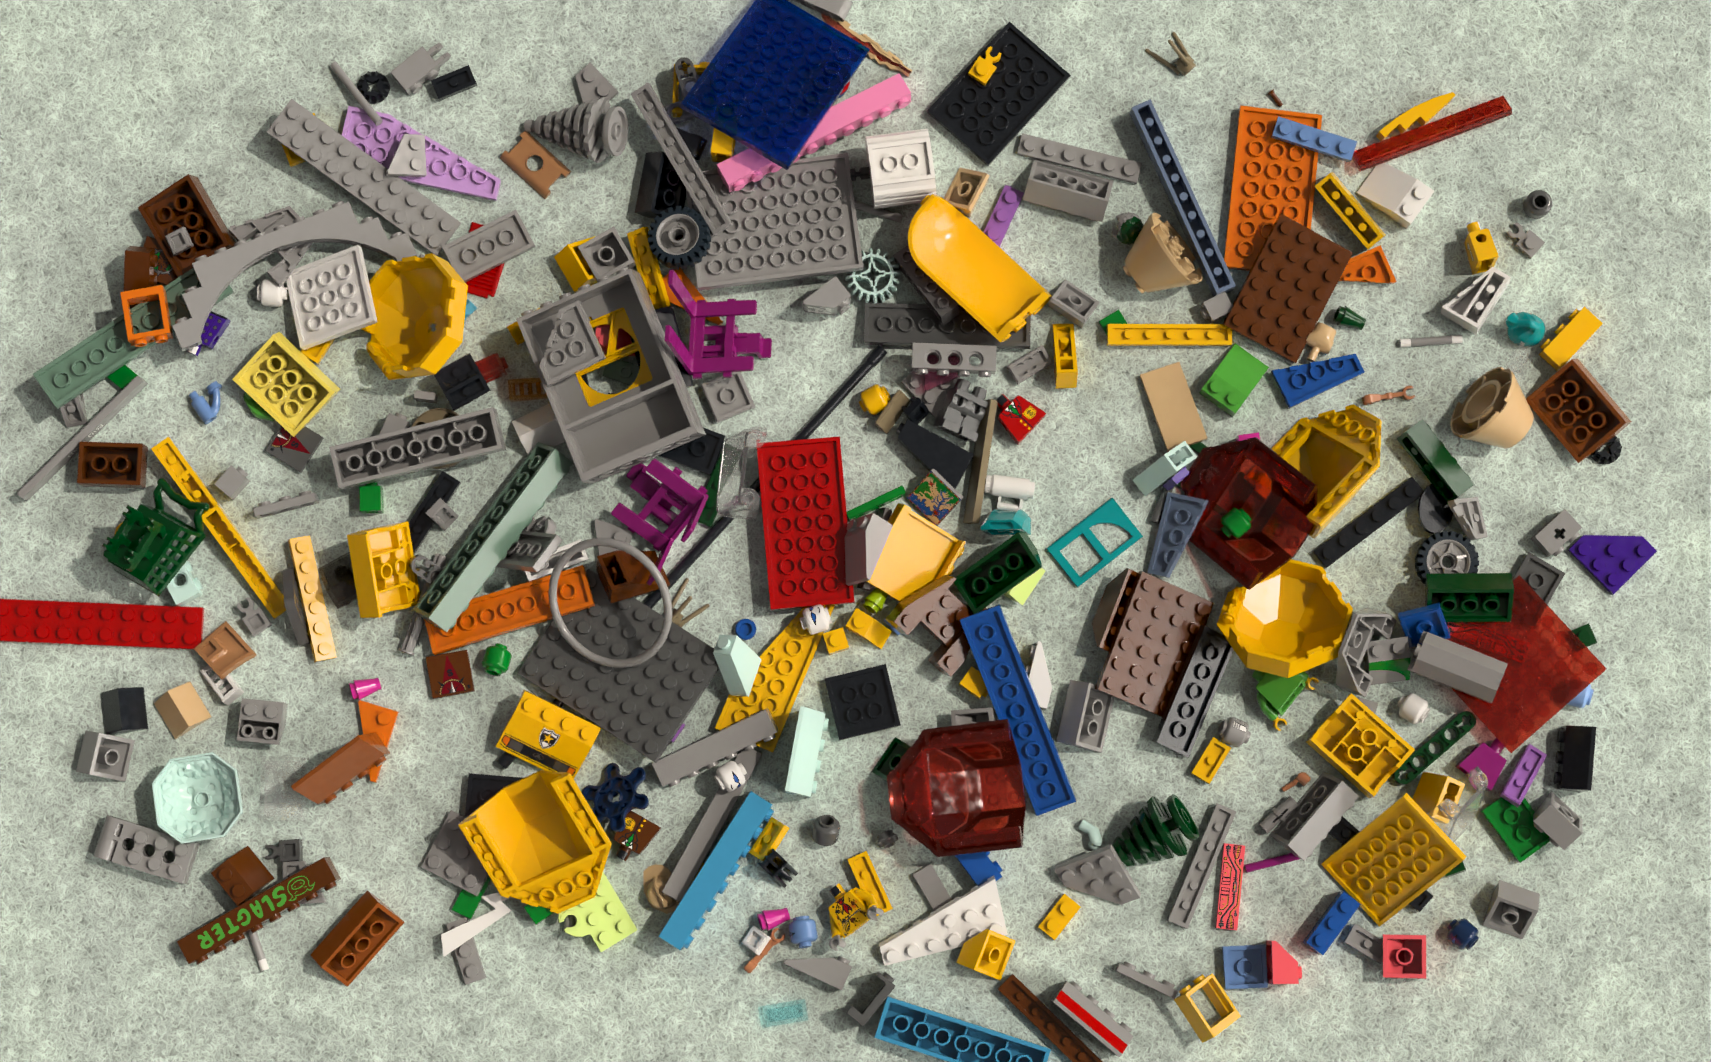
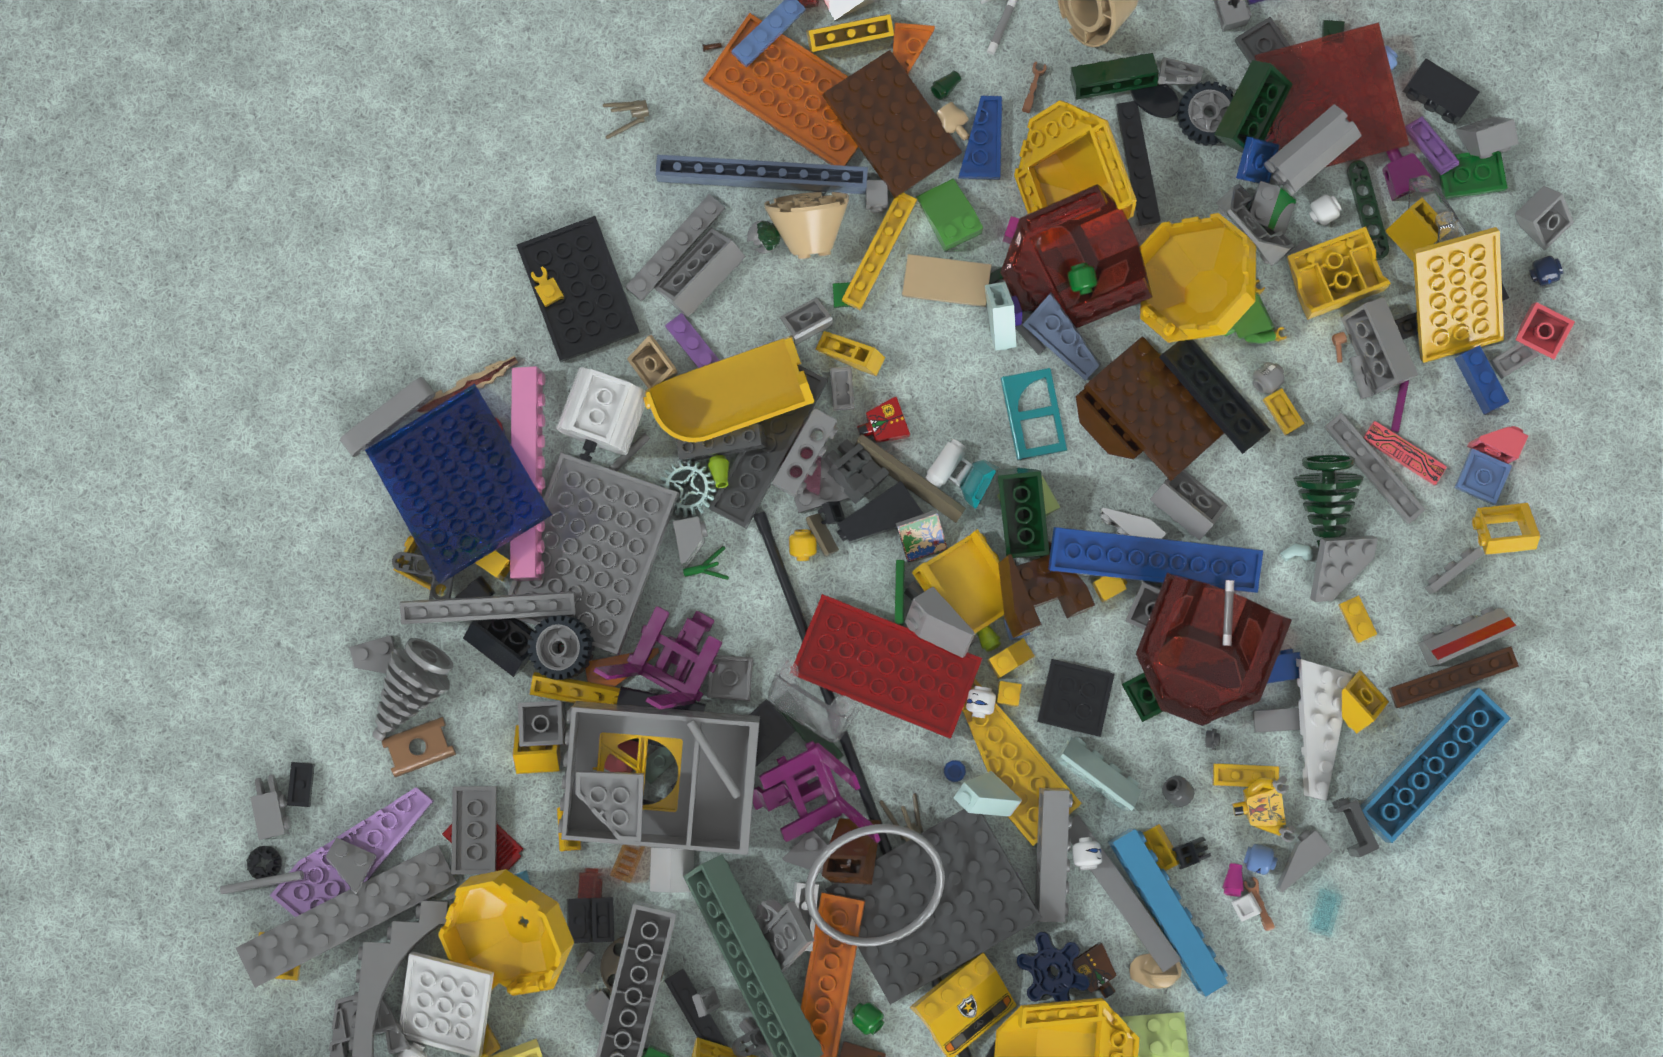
camera: 60 degrees left, 0 degrees up
(647, 410) = (714, 759): none -> light grey bar
(815, 326) = (705, 565): none -> green plant
(904, 293) = (719, 469): none -> lime cone
(1003, 796) = (1228, 613): none -> light grey bar

